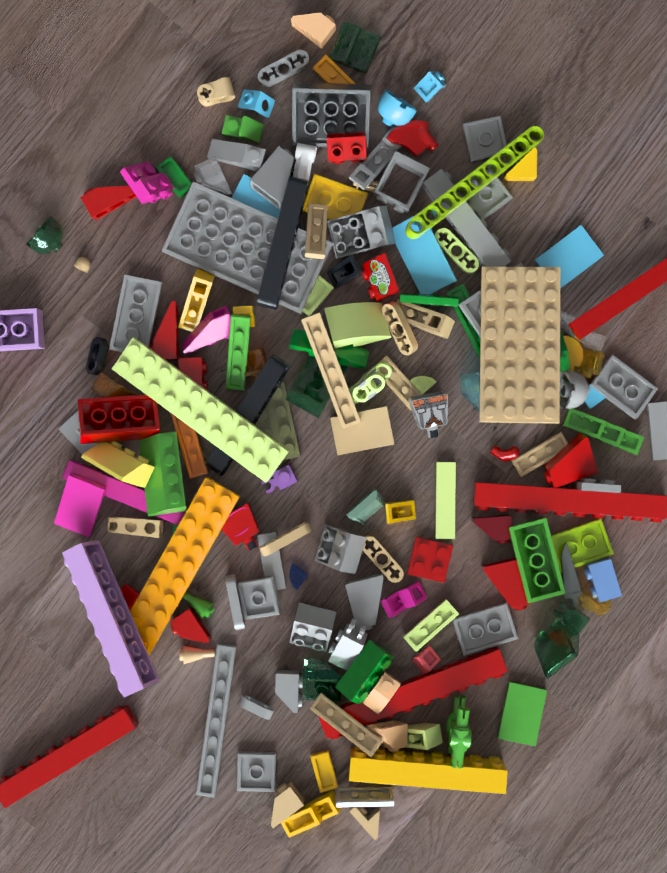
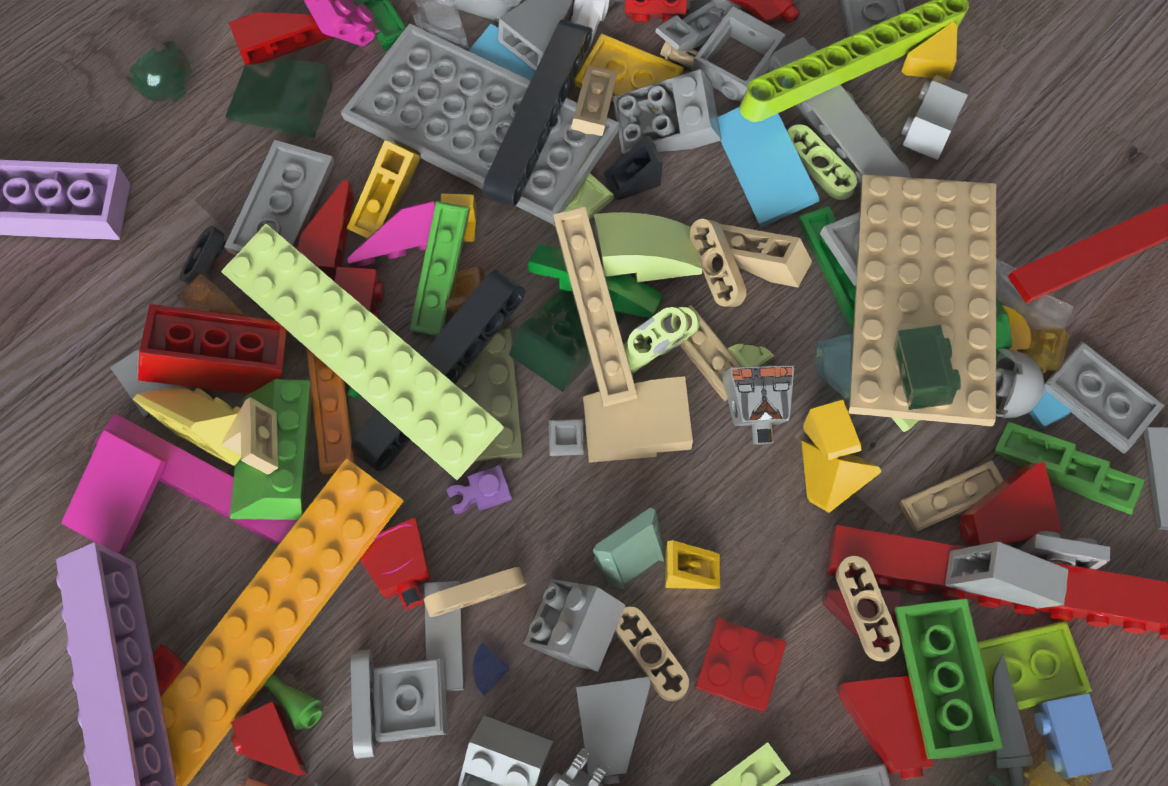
camera: 10 degrees right, 20 degrees down
(82, 264) = (210, 122): tan hinge -> none
(121, 241) = (282, 96): none -> clear green slope
(136, 526) = (208, 542): tan leg -> none
(154, 473) = (254, 436): none -> tan slope
(323, 443) = (566, 437): none -> light grey tile
(380, 278) = (692, 181): slope -> none
(403, 599) = (685, 734): dark pink slope -> none
(430, 299) = (772, 219): tile -> none
(445, 500) = (777, 560): yellowish green tile -> none
(471, 430) = (832, 430): none -> yellow slope
(474, 449) = (834, 479): none -> yellow slope
(490, 197) = (880, 91): light grey tile -> none
(495, 543) = (885, 631): none -> tan beam
(506, 455) = (892, 490): red arm -> none
(519, 398) = (926, 367): none -> clear green brick
(526, 213) = (935, 117): none -> light grey brick
(567, 505) = (1007, 575): none -> light grey slope
(572, 254) = (1020, 182): medium azure tile -> none

